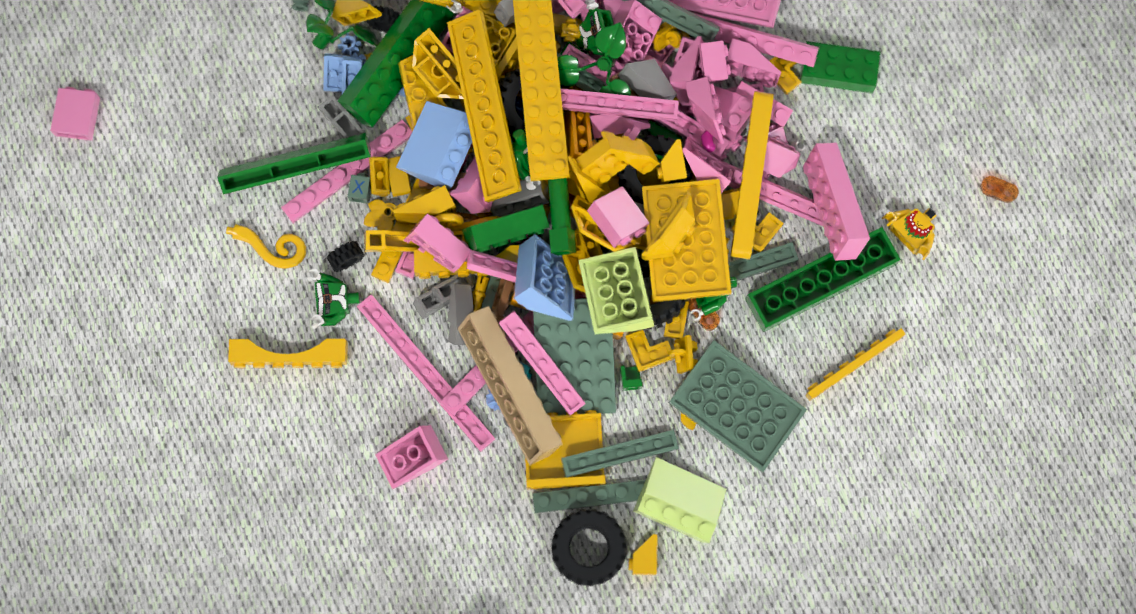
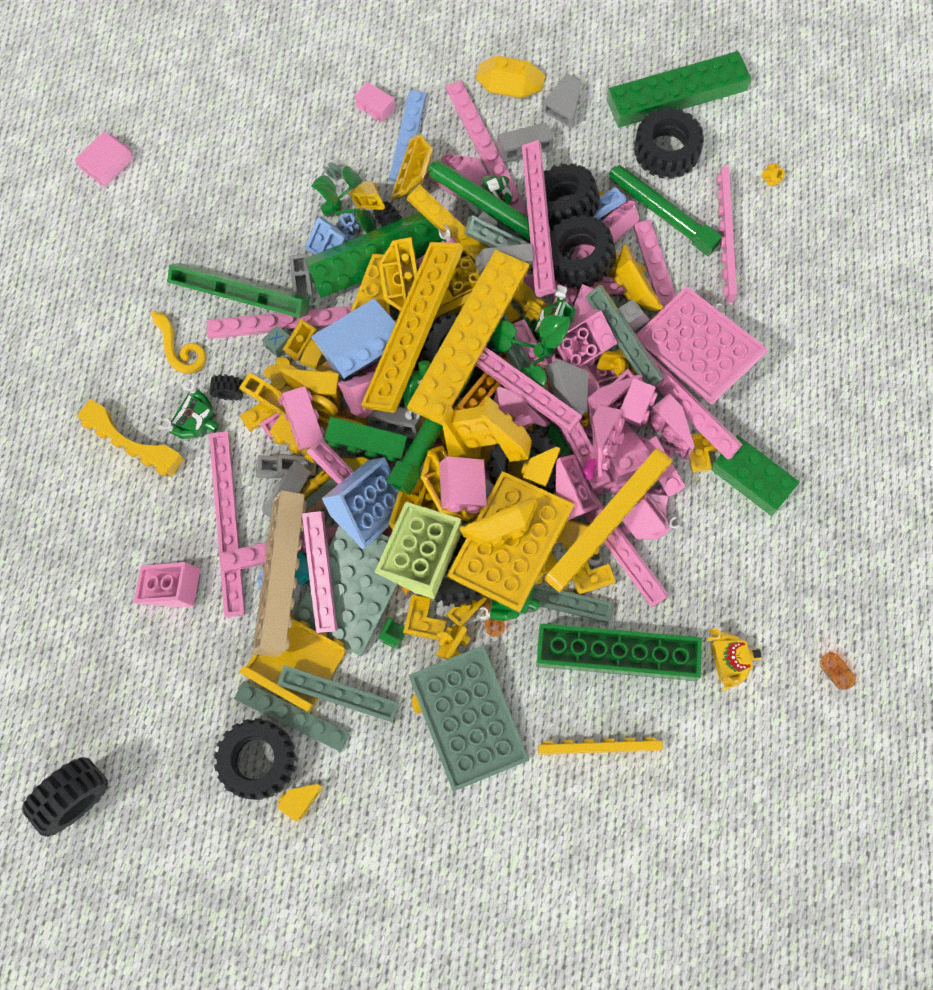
camera: 40 degrees right, 5 degrees down
(681, 500) = (363, 770): yellowish green slope -> none
(836, 201) = (671, 589): bright pink brick -> none

